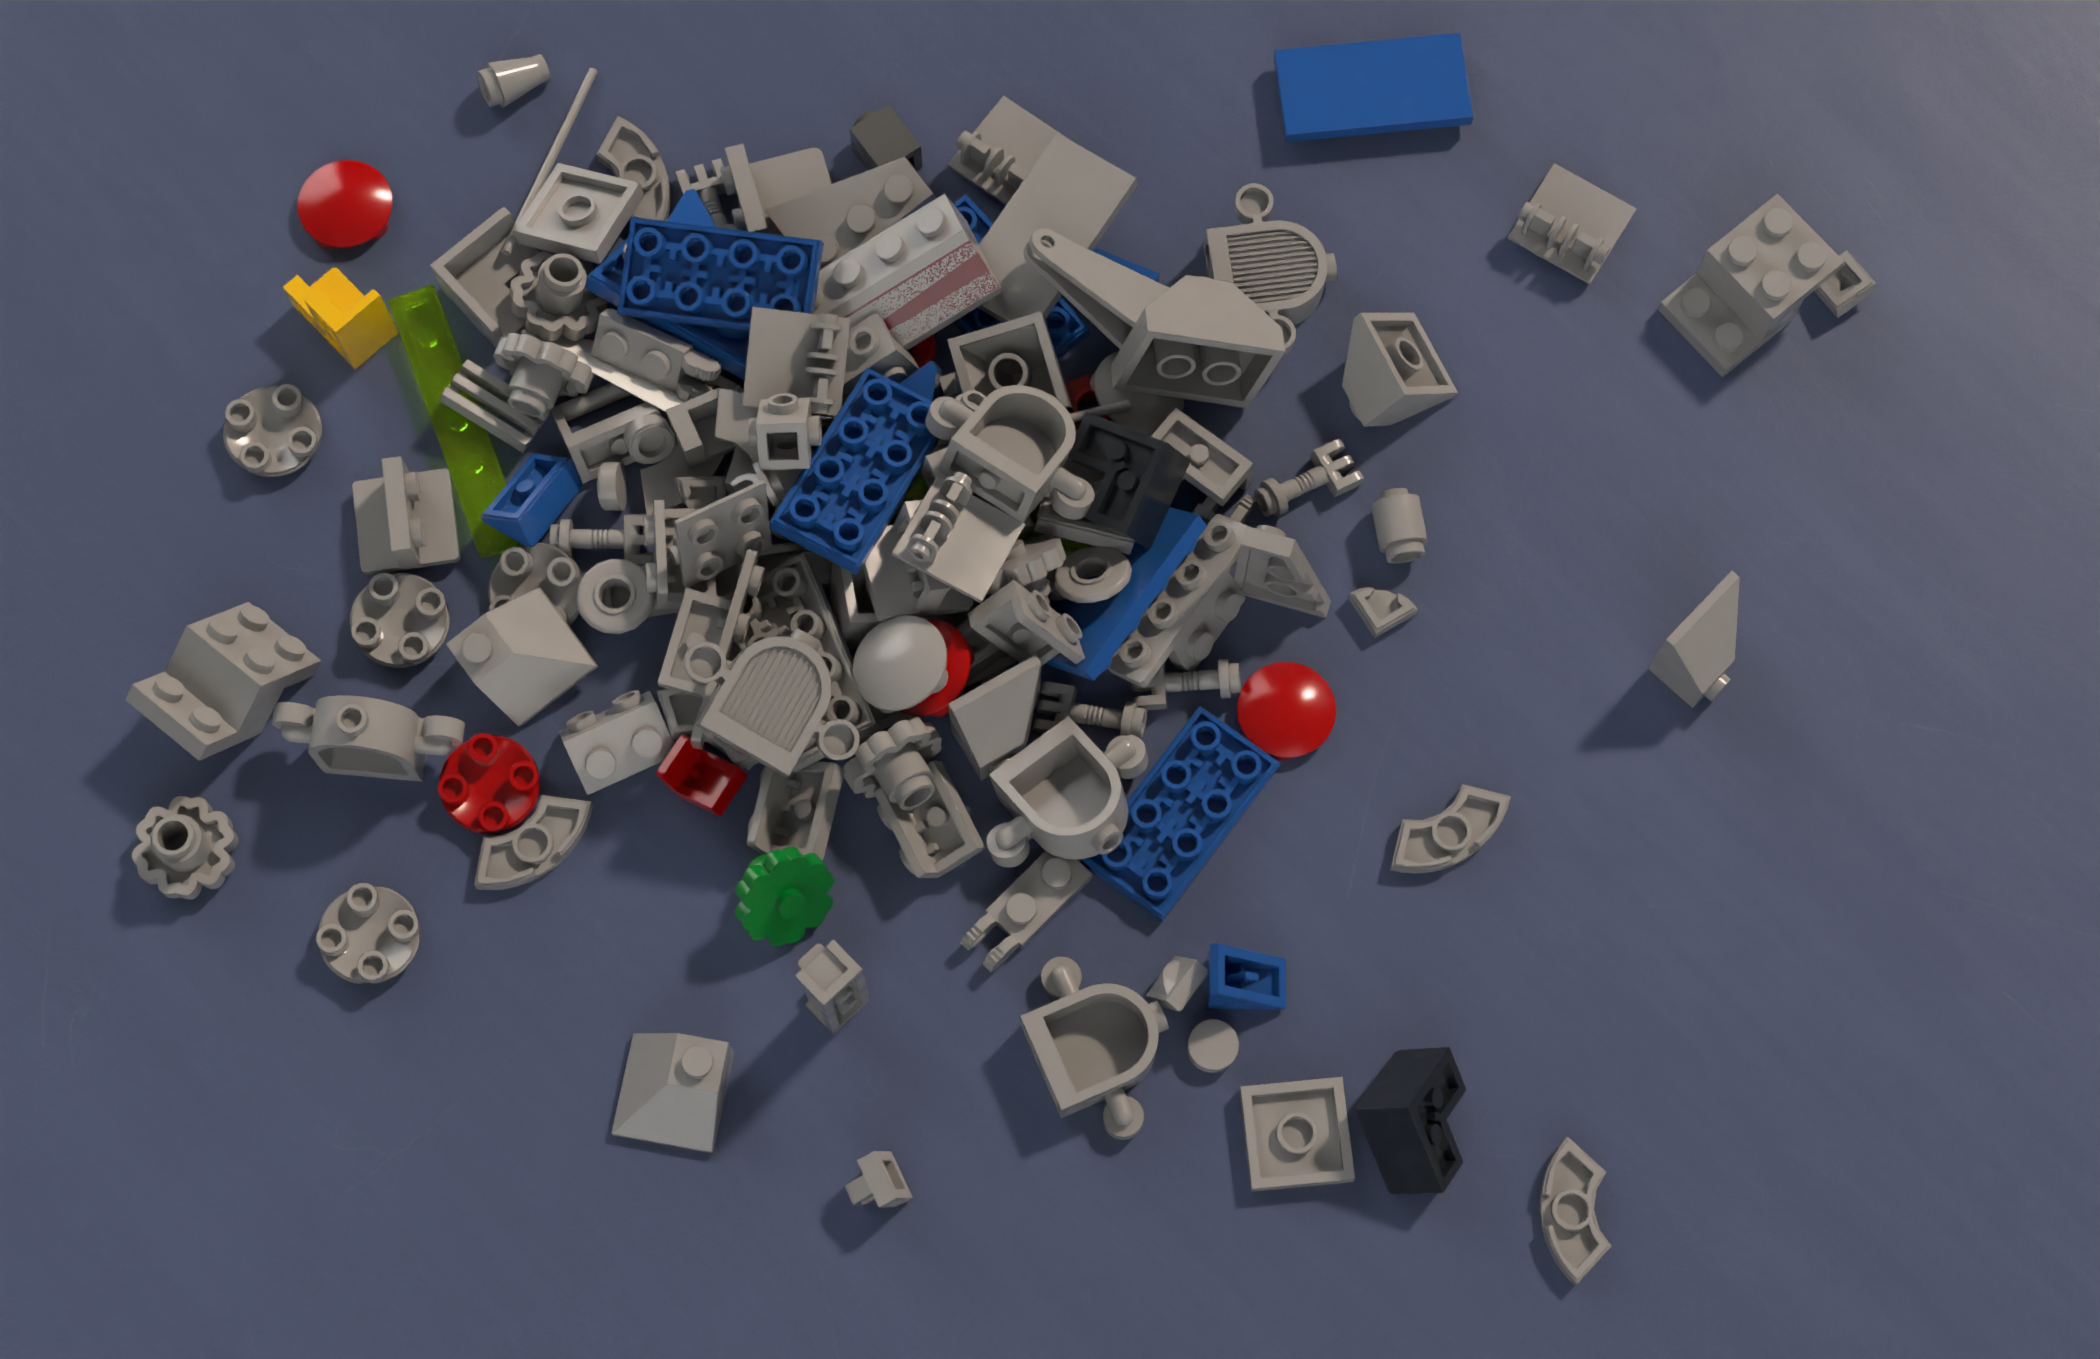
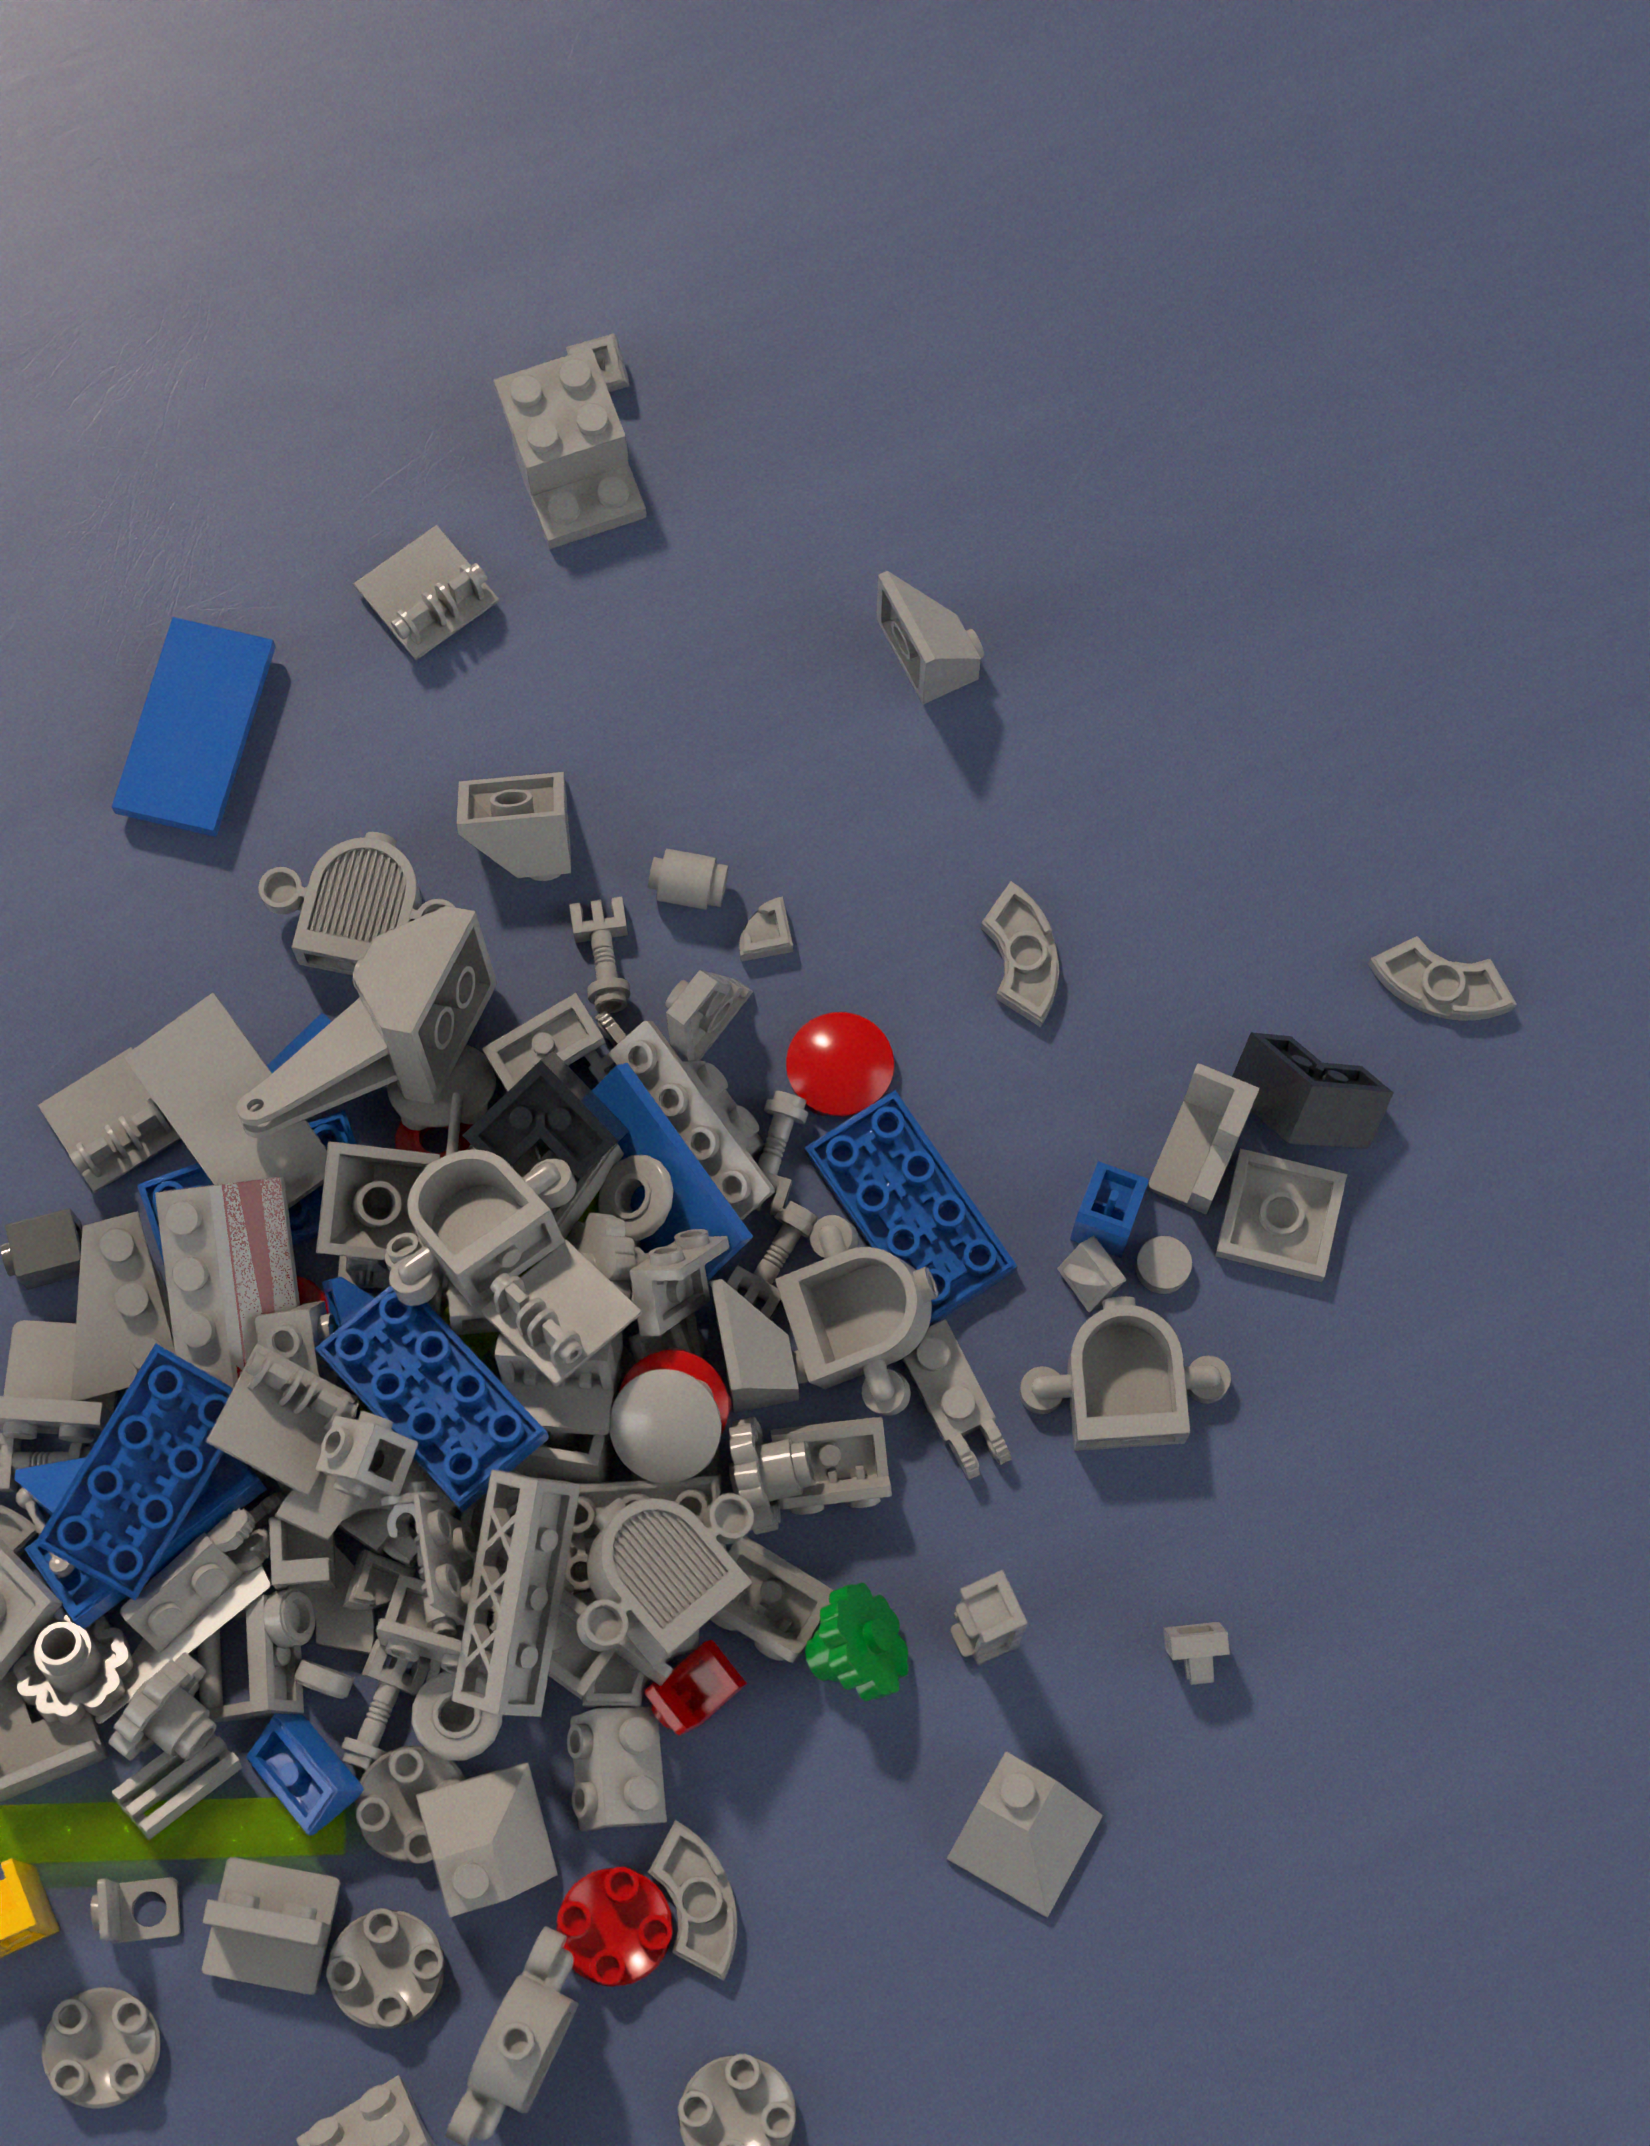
camera: 70 degrees left, 0 degrees up
(378, 399) = (114, 1908): none -> light grey bracket
(713, 594) = (524, 1596): none -> light grey fence
(1332, 1041) = (1202, 1138): none -> light grey panel

